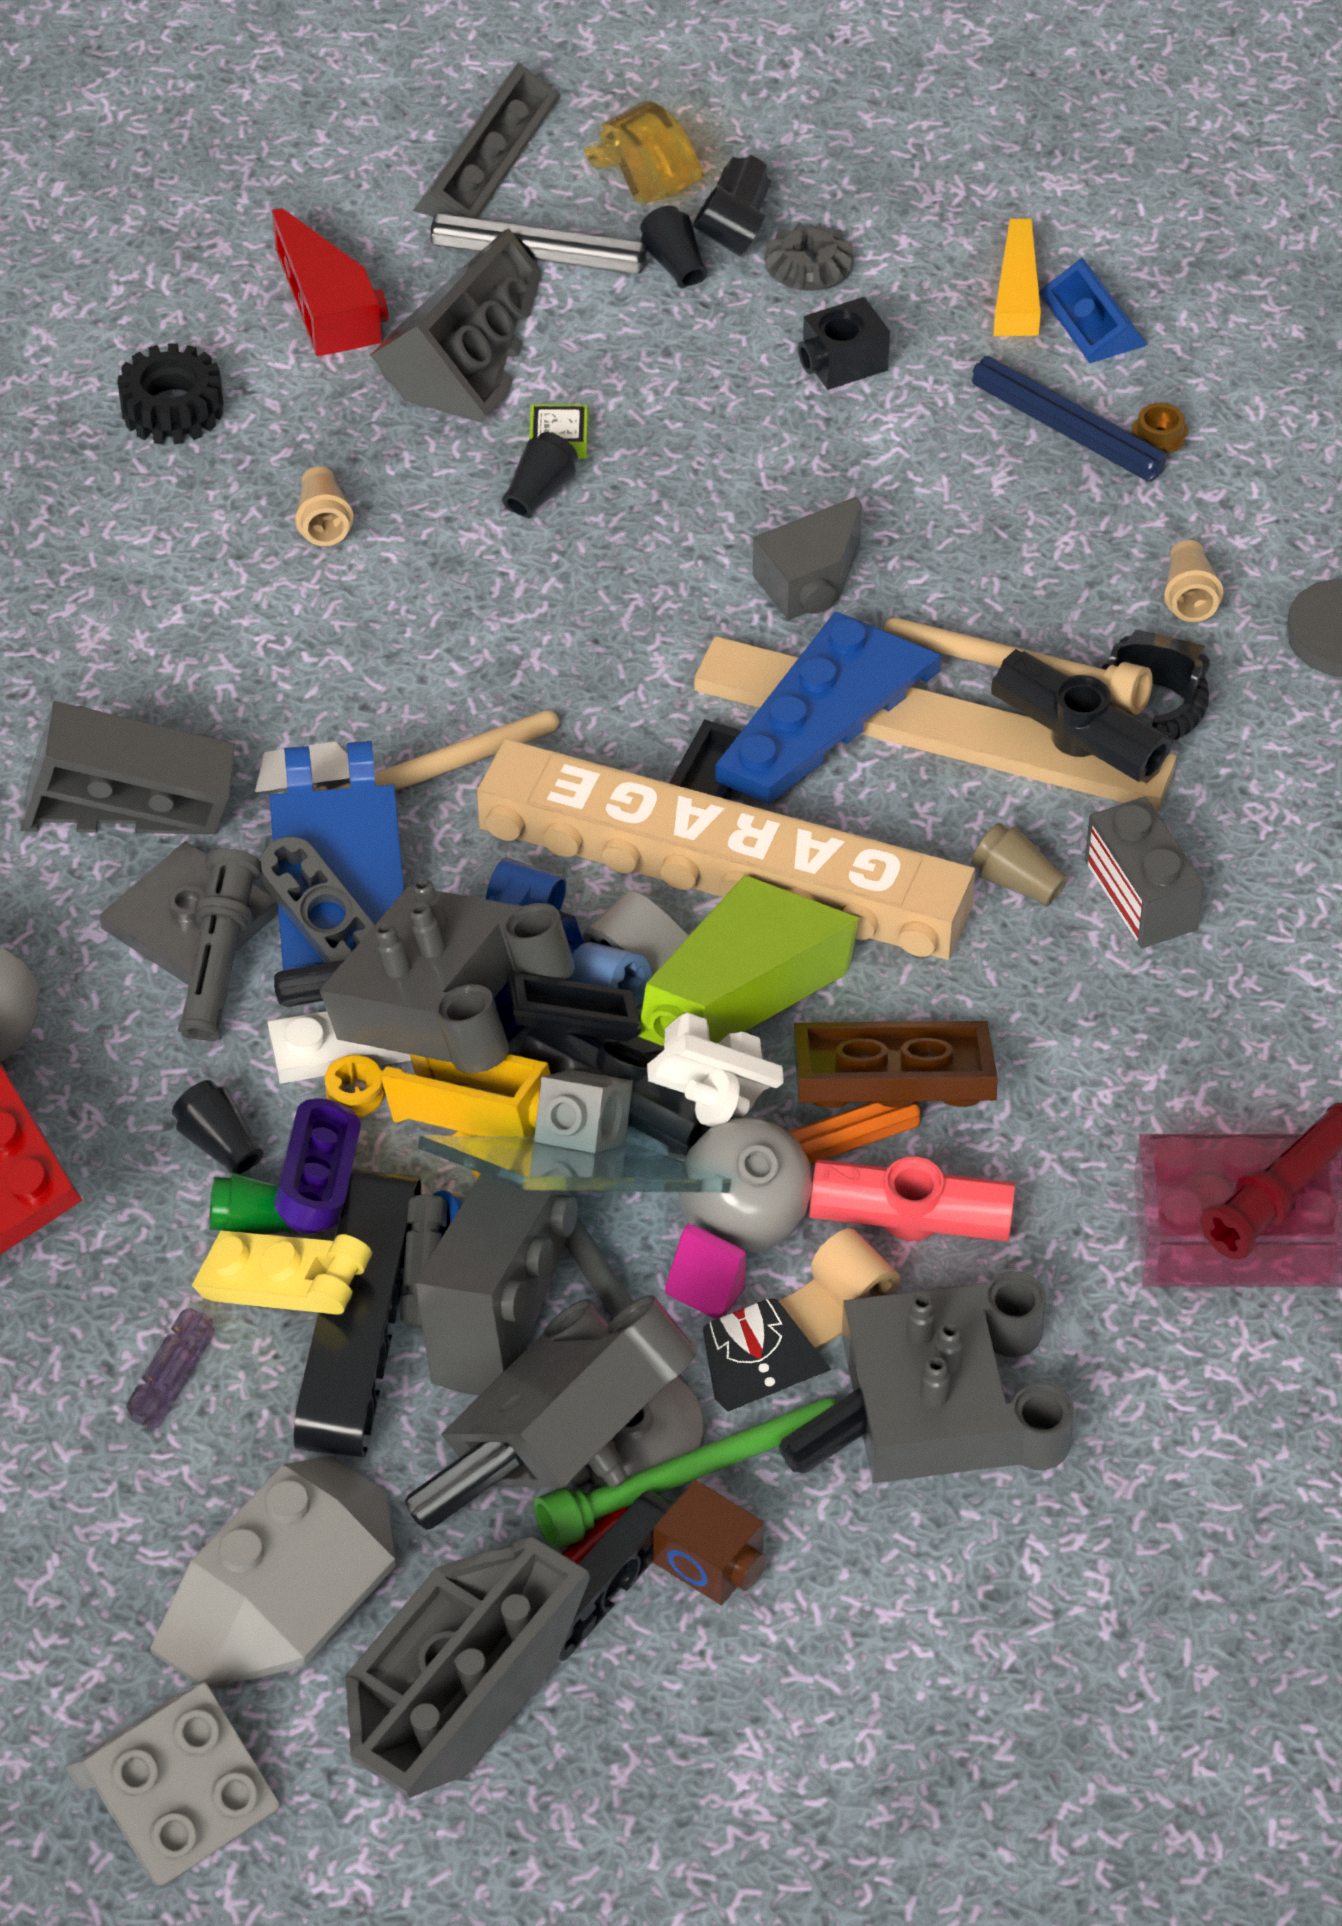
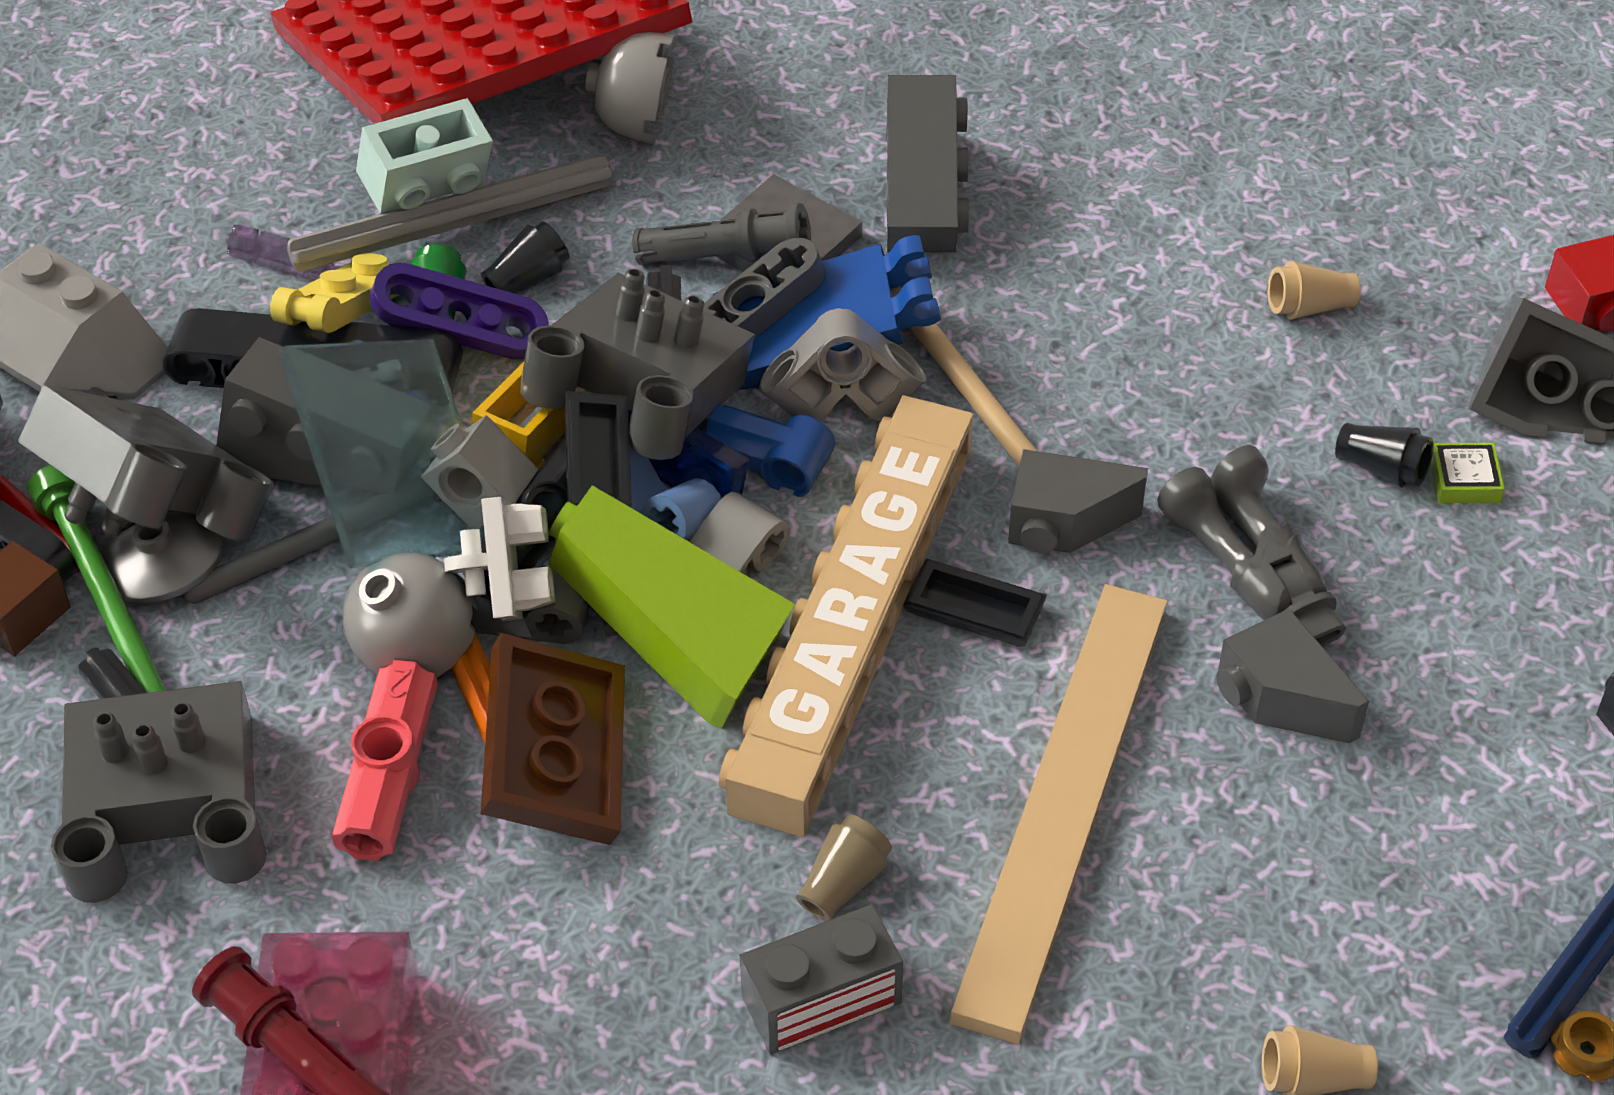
camera: 90 degrees right, 0 degrees up
(112, 1177) = (423, 156): none -> light aqua brick
(140, 1197) = (448, 213): none -> light grey axle
(170, 415) = (1445, 196): black tyre -> none
(328, 763) = (965, 299): white sticker -> none
(431, 832) = (813, 378): none -> light grey piece
(599, 694) = (1072, 500): none -> dark grey slope
(675, 562) = (1281, 570): none -> dark grey piece
(706, 1272) = (323, 608): dark pink slope -> none
(758, 1354) = (233, 645): black sticker -> none
(821, 701) = (1083, 694): blue wing -> none
(841, 1271) = (286, 701): tan panel -> none
(1081, 716) = (1020, 939): black piece -> none
(1127, 683) = (1090, 952): tan piece -> none
(1174, 665) = (1174, 997): black piece -> none

